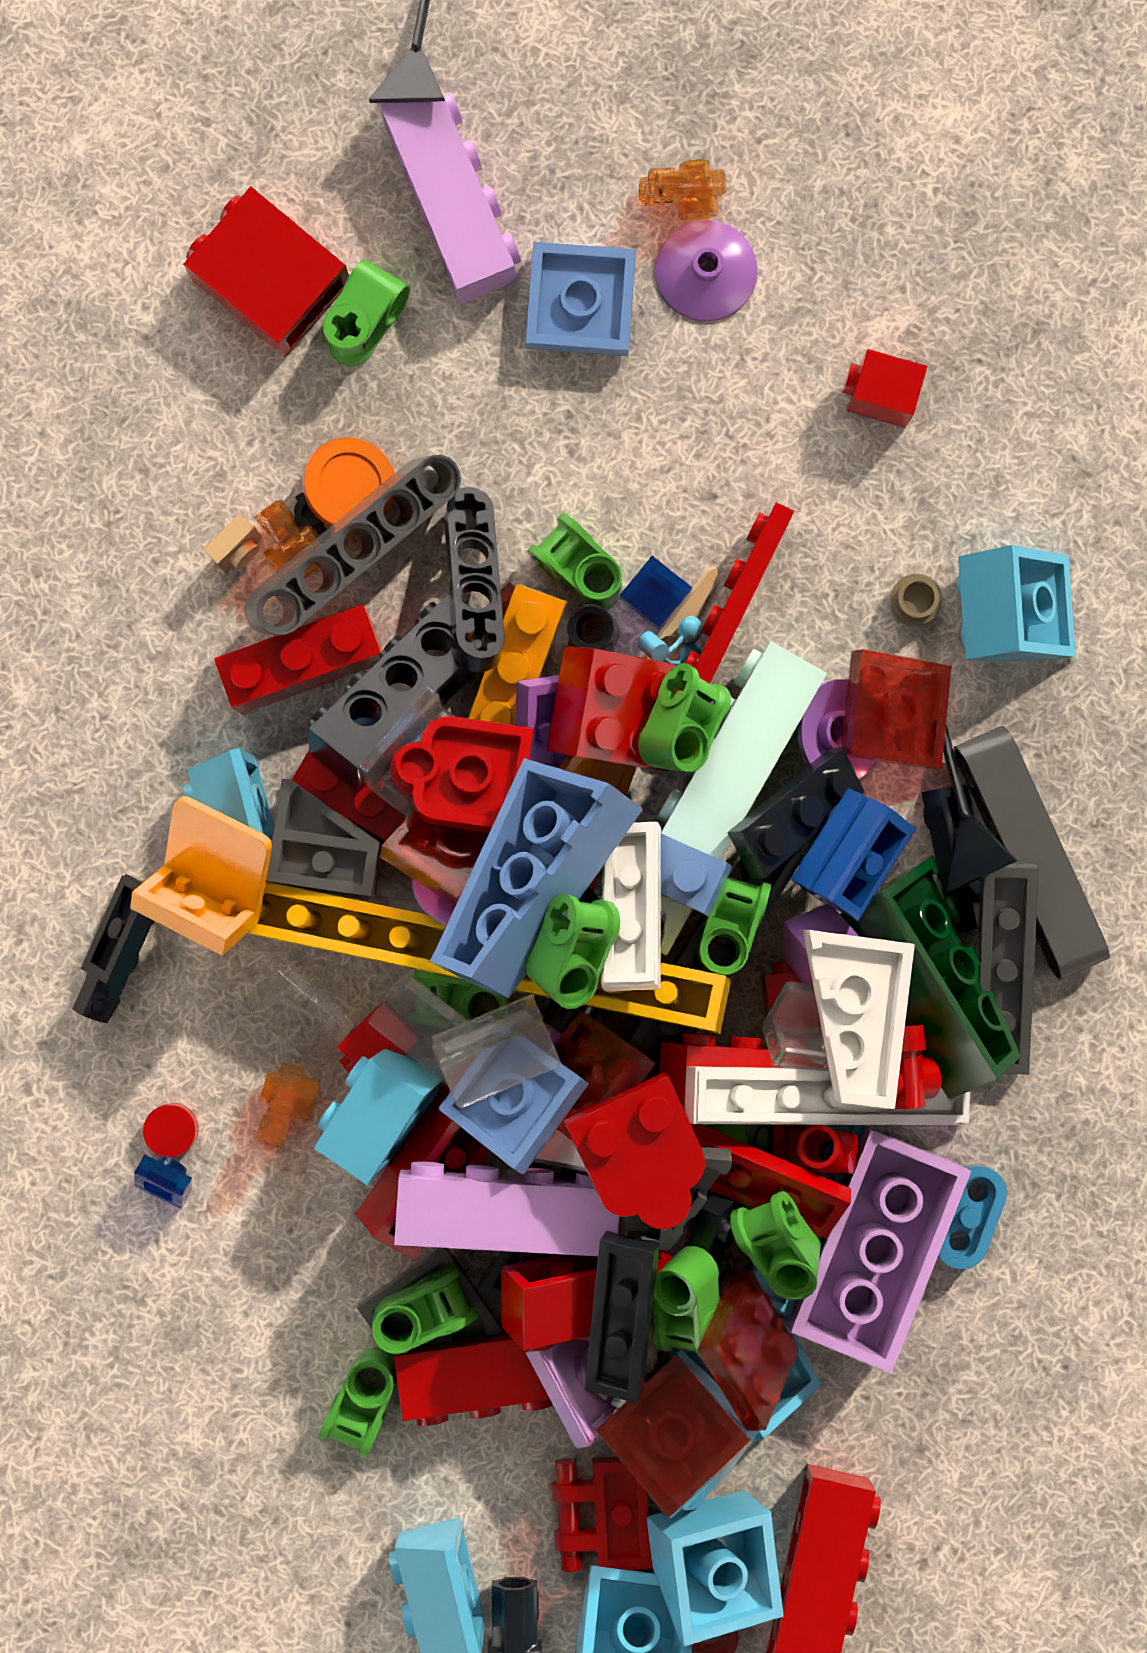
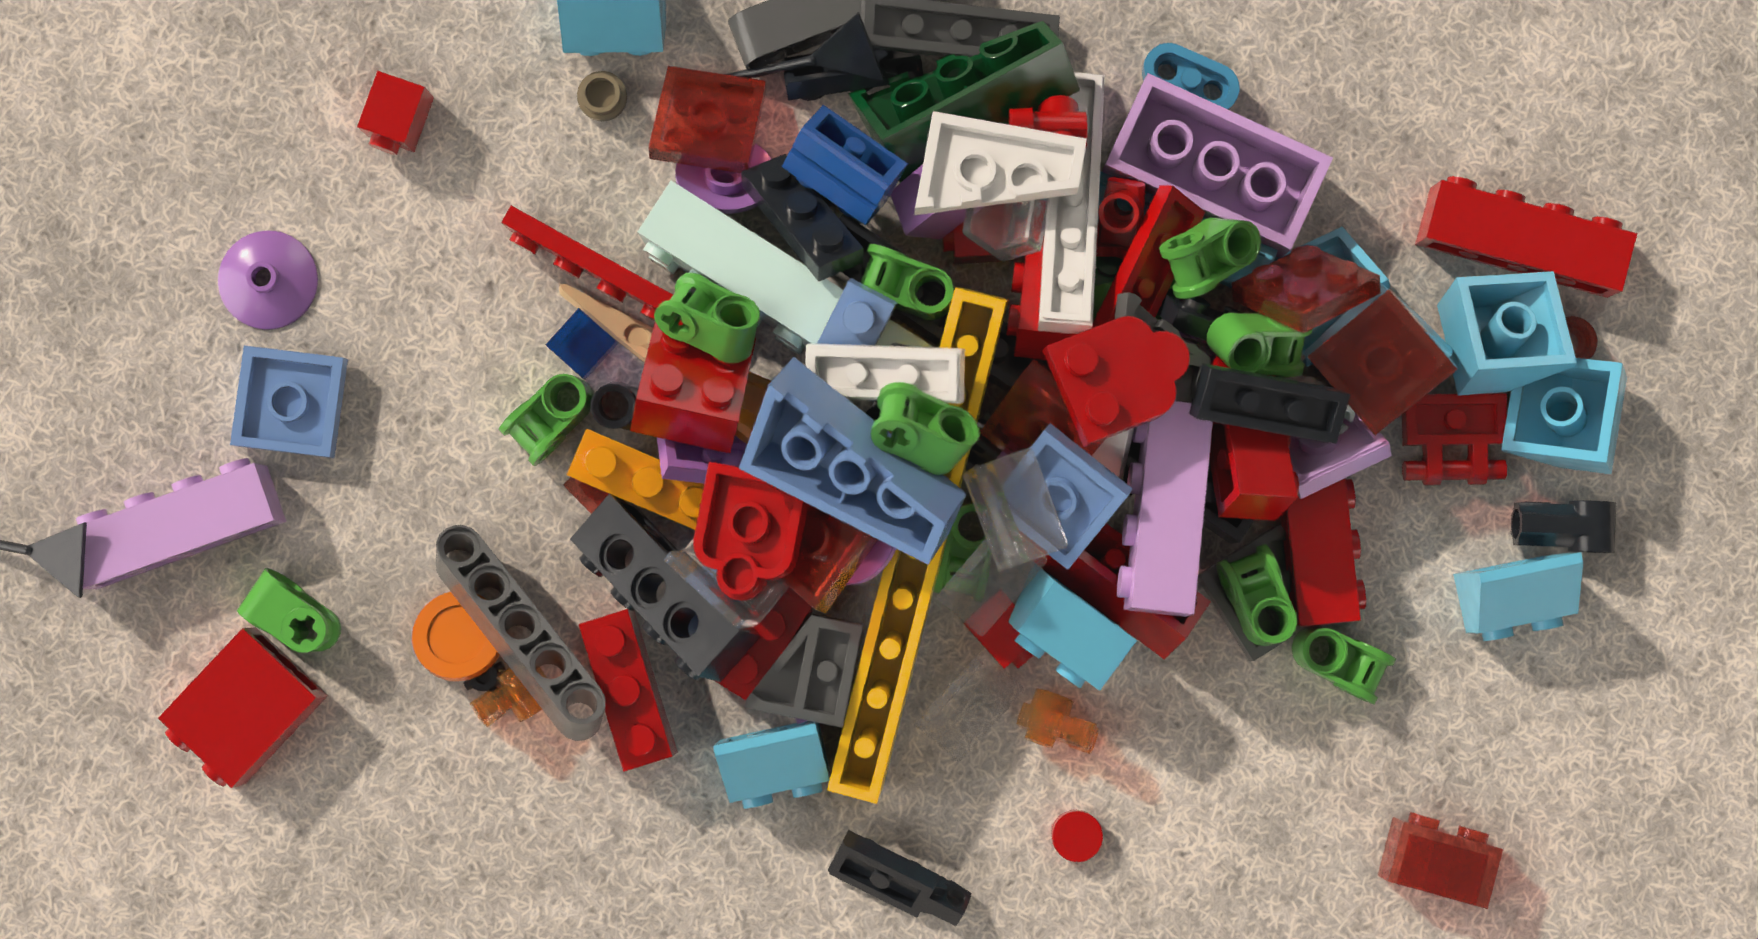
camera: 85 degrees left, 0 degrees up
(156, 1515) = (1440, 862): none -> clear red brick
(164, 1179) = (1124, 842): clear blue plate -> none
(208, 879) = (836, 780): light orange bracket -> none
(234, 544) = (511, 749): tan plate -> none
(476, 578) = (558, 520): black beam -> none
(656, 649) = (638, 343): medium azure piece -> none
(691, 187) = (185, 288): clear orange plate -> none

